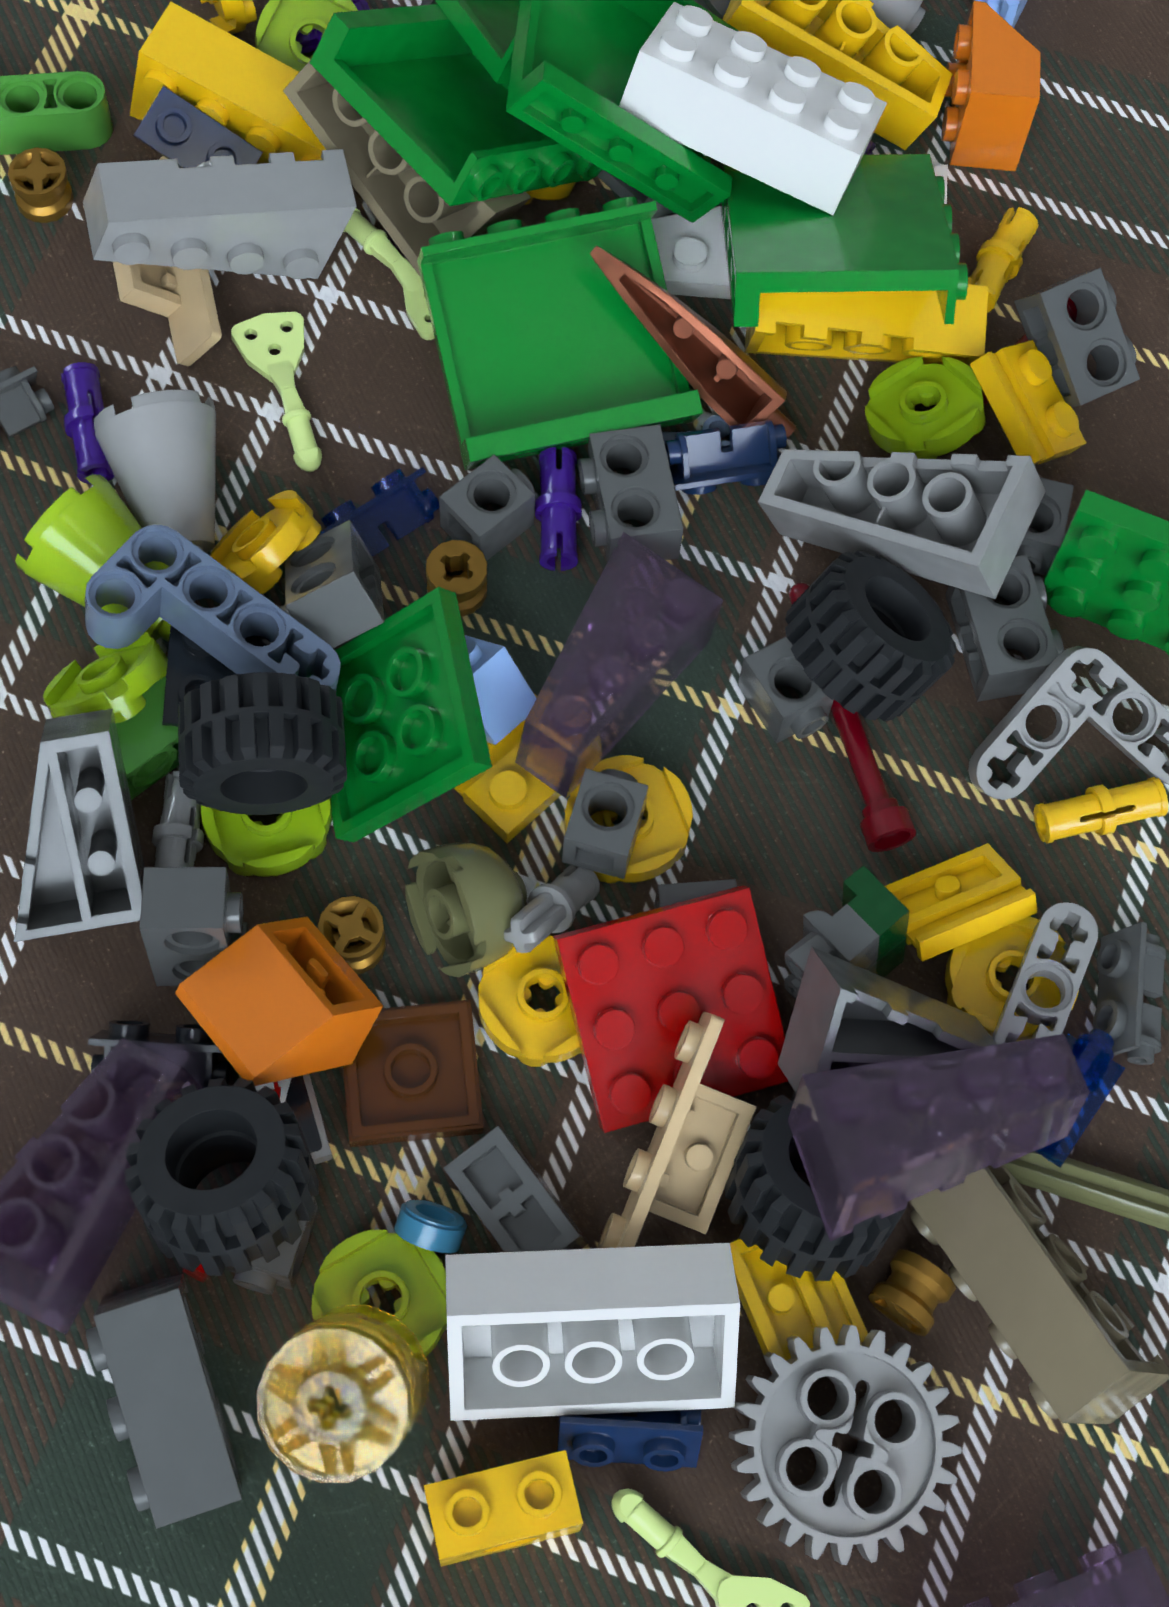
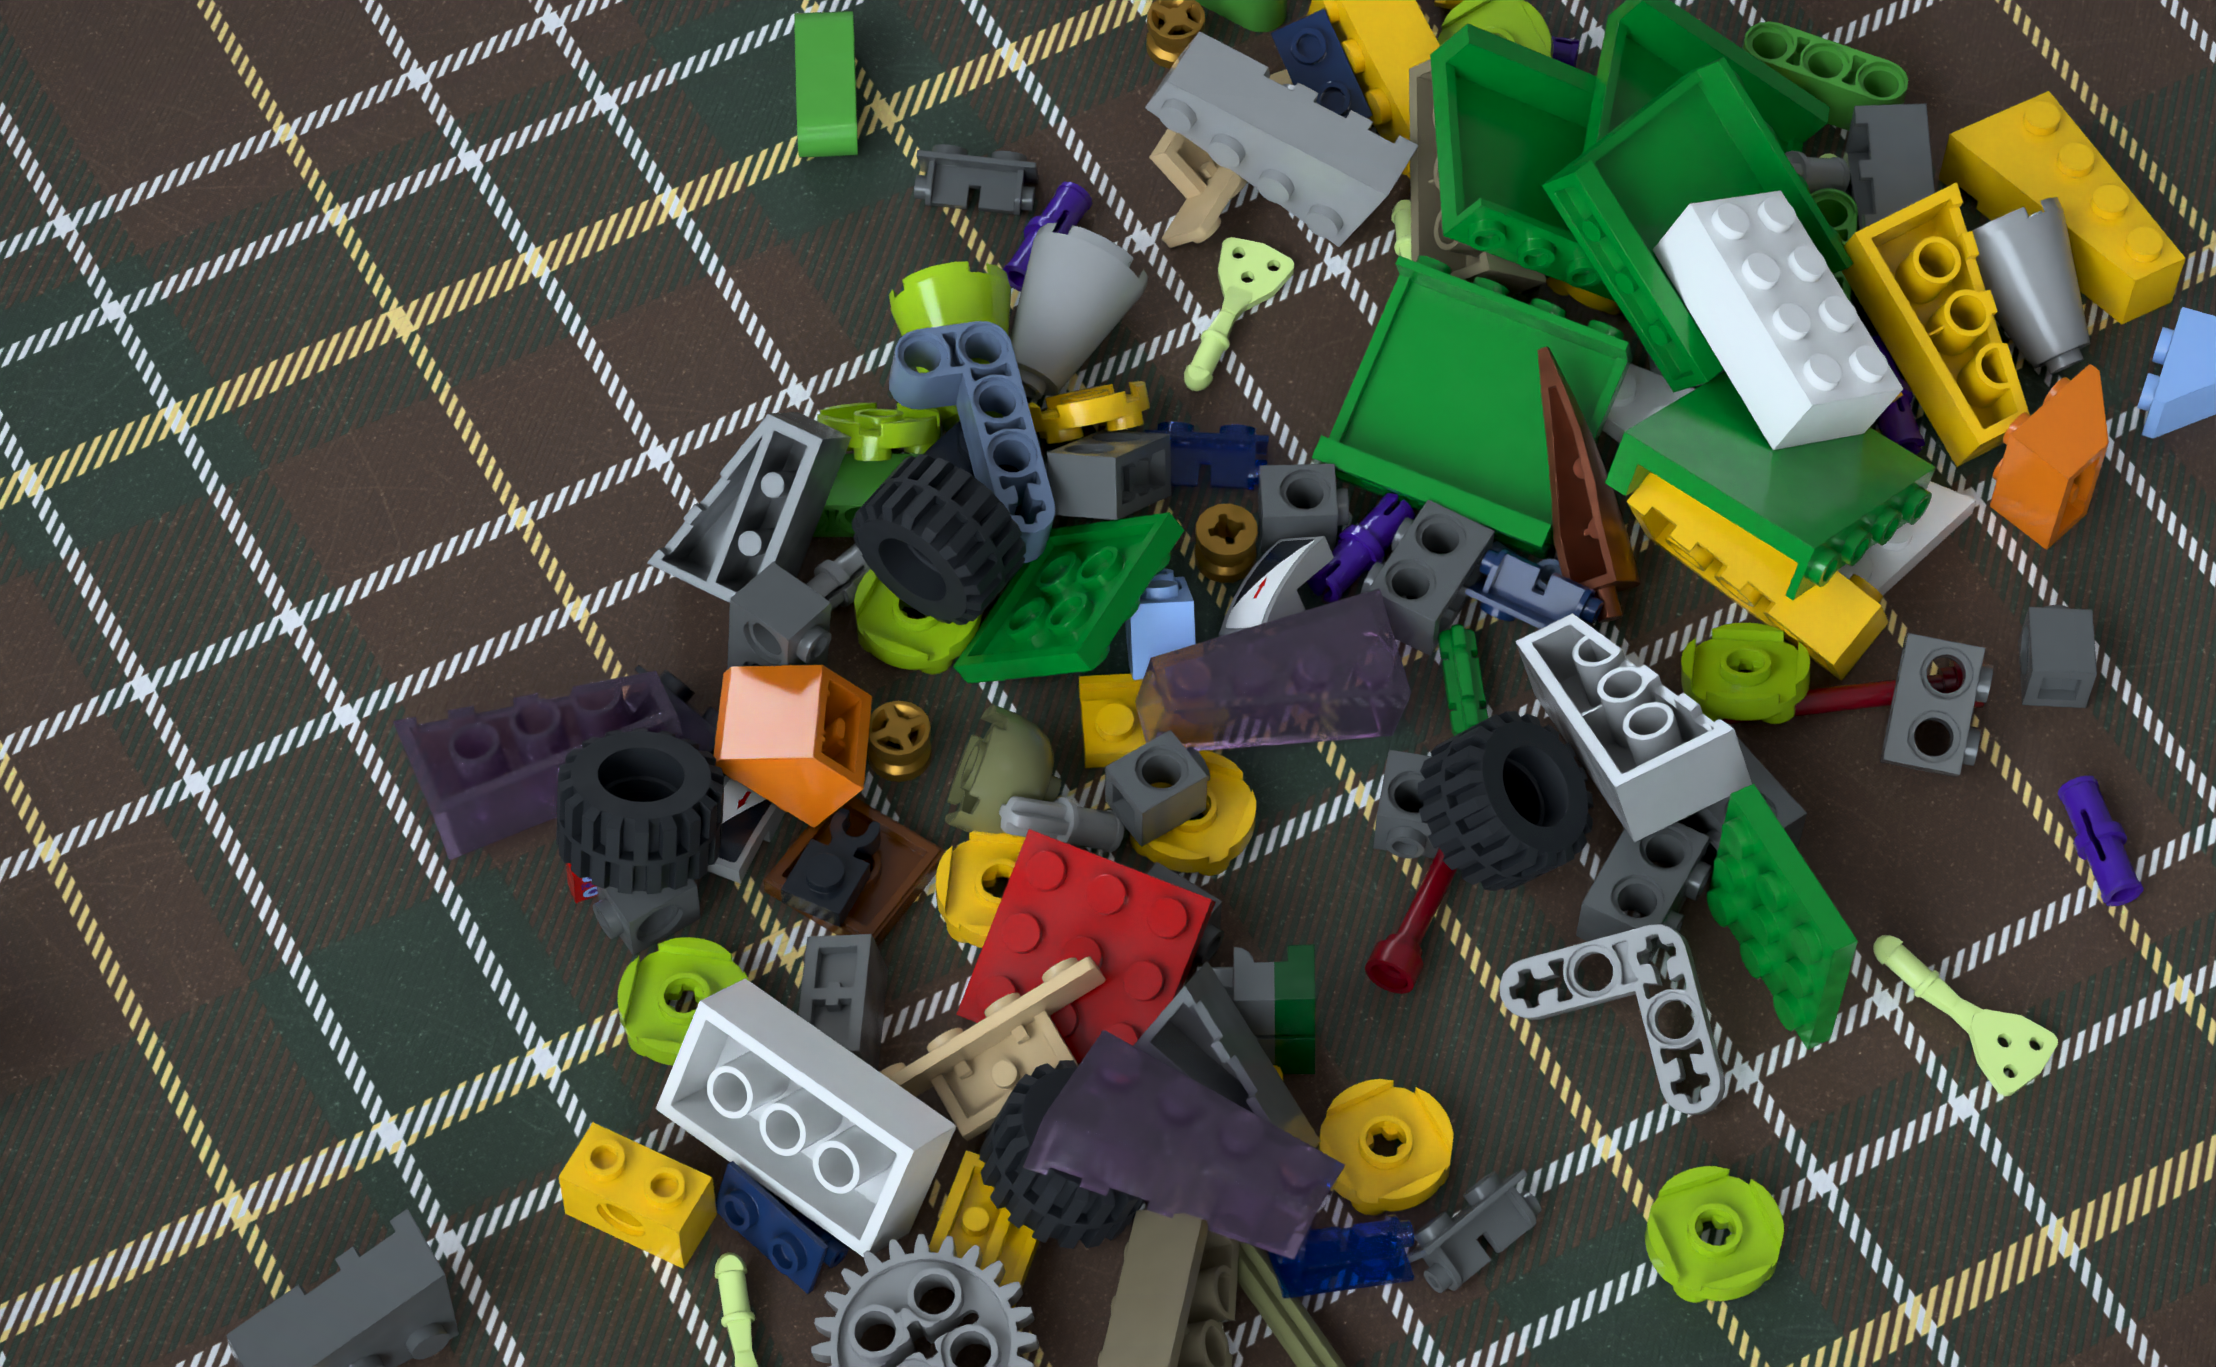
camera: 45 degrees right, 10 degrees down
(164, 1401) = (474, 940): dark grey wedge -> none
(378, 1373) = (595, 1021): clear yellow wheel -> none
(406, 1096) = (832, 875): none -> black plate
(430, 1226) = (766, 972): dark azure tile -> none
(531, 596) = (1273, 583): none -> slope
(730, 563) = (1462, 678): none -> green axle
(912, 1292) = (1078, 1293): pearl gold wheel -> none
(961, 901) = (1391, 1052): yellow plate -> none
(1001, 256) = (1946, 605): yellow pin -> none
(1028, 402) = (1838, 728): yellow plate -> none
(1042, 945) = (1442, 1159): light grey beam -> none
(1100, 810) = (1547, 1065): yellow pin -> none
(1109, 238) = (2057, 656): none -> dark grey brick

